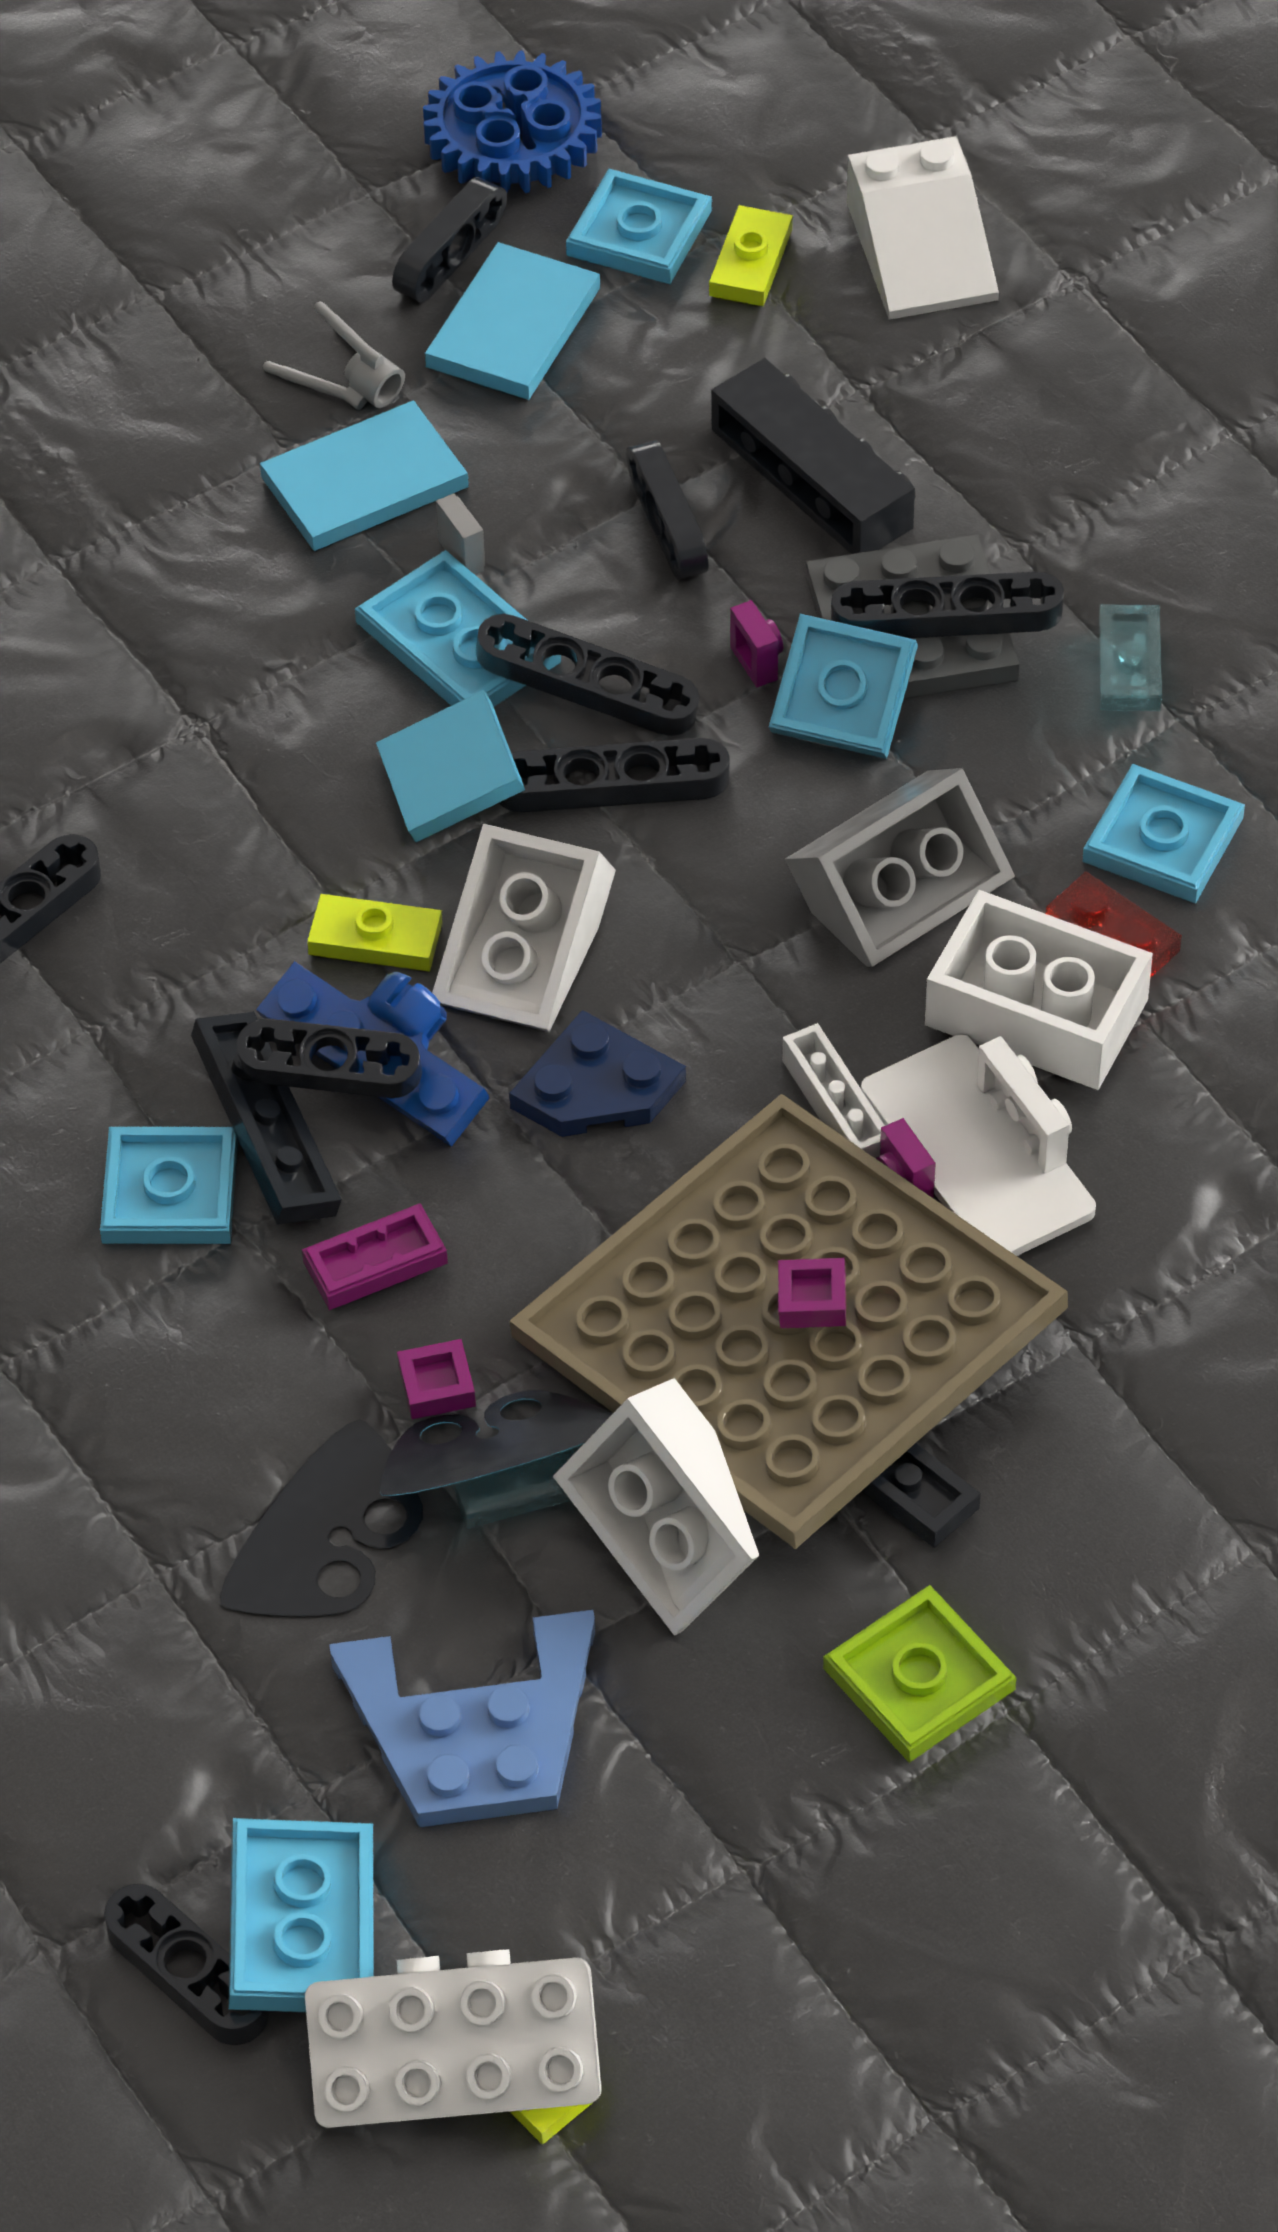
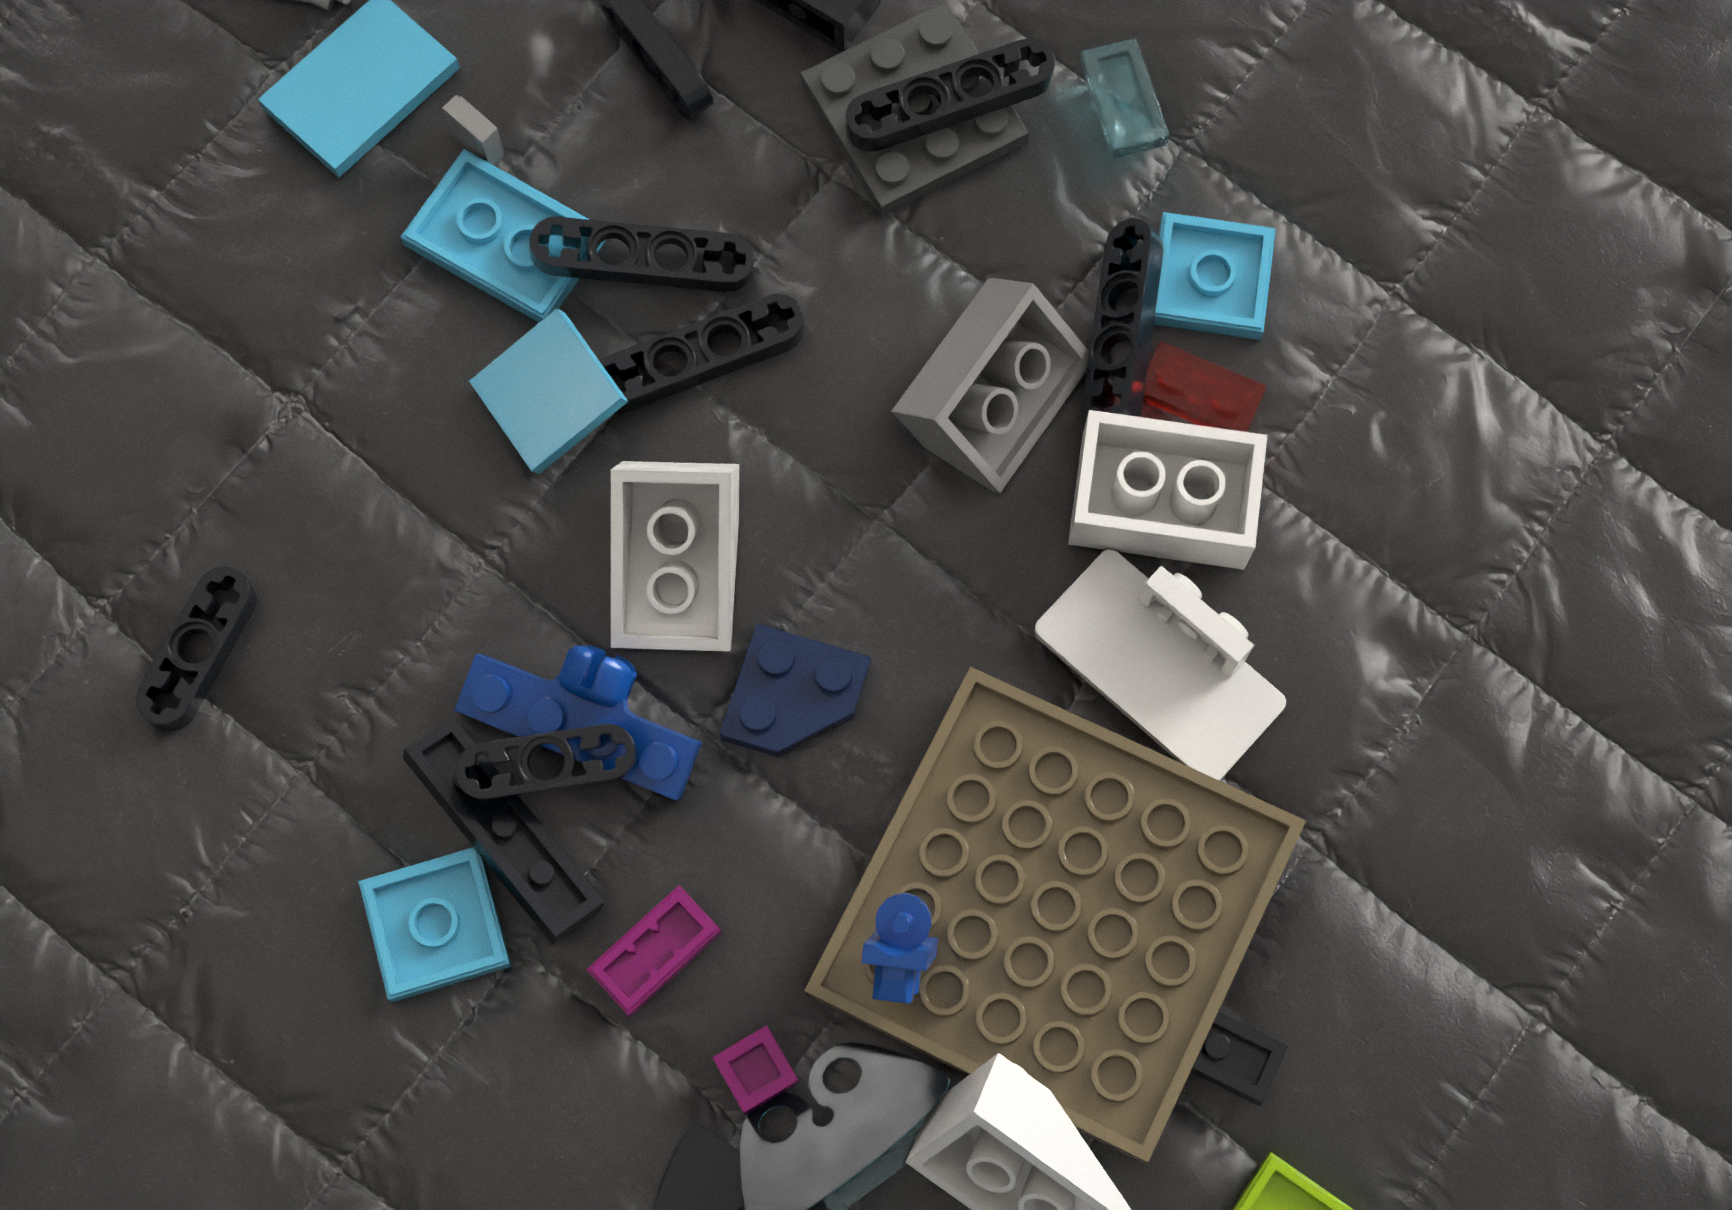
camera: 20 degrees left, 20 degrees up
(375, 932) = (535, 588): neon yellow plate -> none
(613, 1282) = (900, 947): none -> blue hips
(755, 643) = (785, 176): magenta plate -> none
(812, 1293) = (1081, 897): magenta plate -> none
(831, 1088) = (1015, 647): white piece -> none
(843, 686) = (881, 203): medium azure tile -> none
(907, 1156) = (1105, 706): magenta plate -> none
(1059, 835) = (1131, 325): none -> black beam

